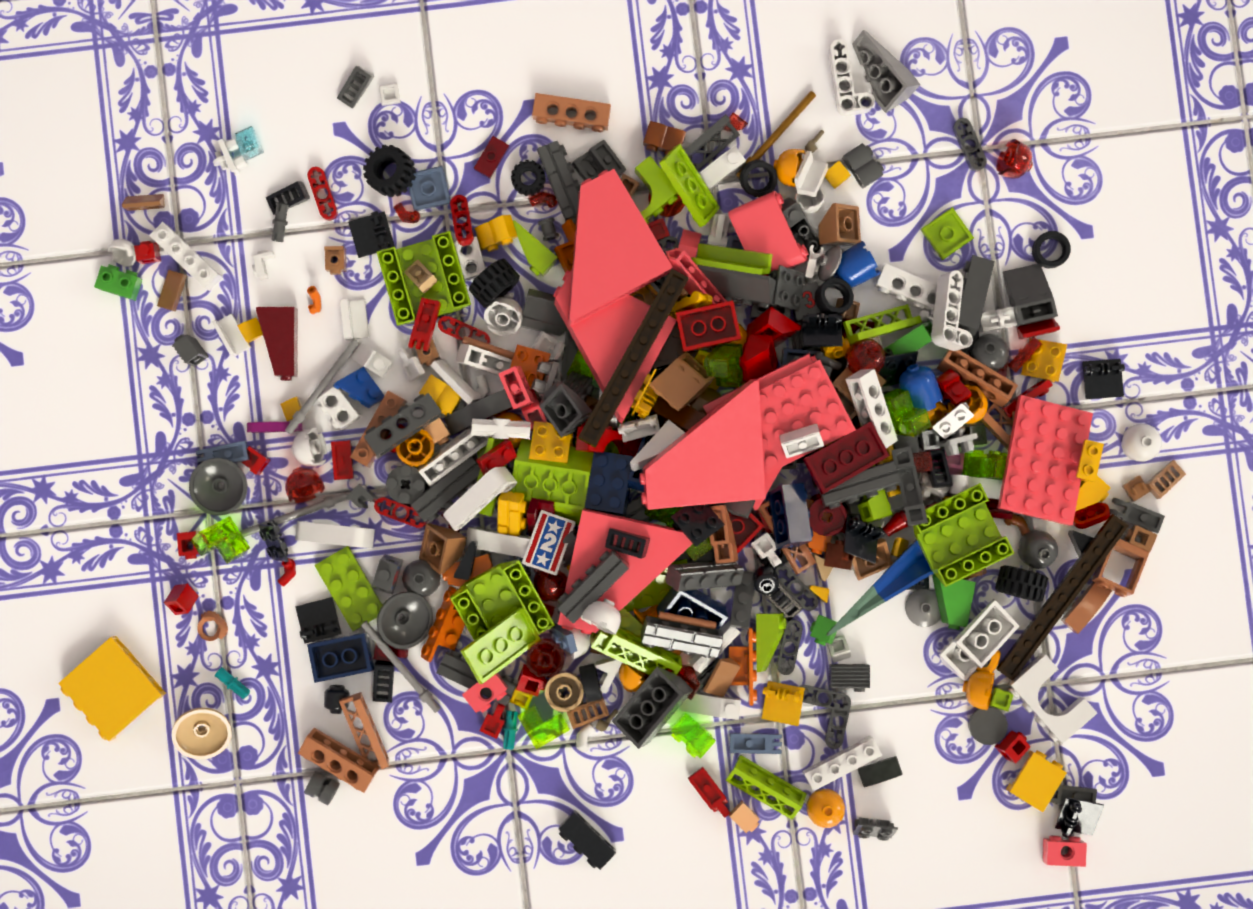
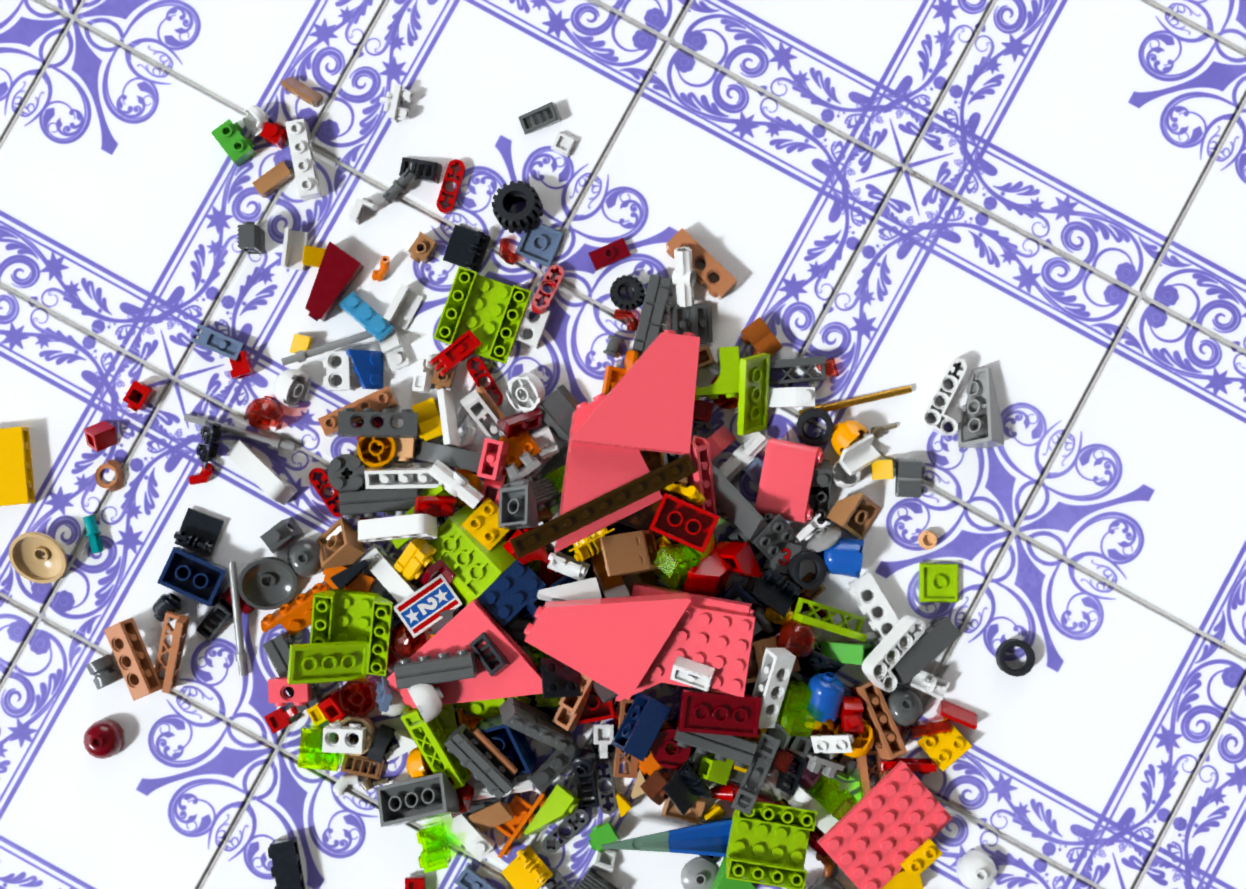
camera: 35 degrees right, 0 degrees up
(205, 488) = (183, 368): dark grey dish -> none
(223, 536) = (170, 410): clear neon green brick -> none
(249, 143) = (420, 103): clear light blue slope -> none
(268, 427) = (272, 347): magenta beam -> none
(329, 347) = (366, 316): none -> dark azure plate
(341, 460) = (309, 417): red plate -> none
(349, 587) = (243, 524): lime plate -> none
(361, 494) = (307, 456): dark grey hinge -> none
(361, 842) = (104, 739): none -> dark red cylinder
(420, 276) = (481, 311): tan slope -> none
(494, 282) = (536, 359): black tyre -> none
(496, 232) = (567, 319): yellow brick -> none
(510, 730) = (289, 734): teal axle -> none
(517, 343) = (520, 422): none -> dark red panel
(537, 255) = (589, 360): lime slope -> none
(561, 702) = (344, 744): none -> white brick
(565, 131) = (684, 276): none -> white piece
(733, 259) = (745, 481): lime fence -> none
(913, 205) = (927, 539): none -> light nougat plate
(969, 159) = (1012, 537): dark grey beam -> none
(1015, 160) = (1037, 563): clear red cylinder -> none
(1029, 294) = (970, 682): dark grey slope -> none
(1103, 378) = (982, 794): black hinge -> none

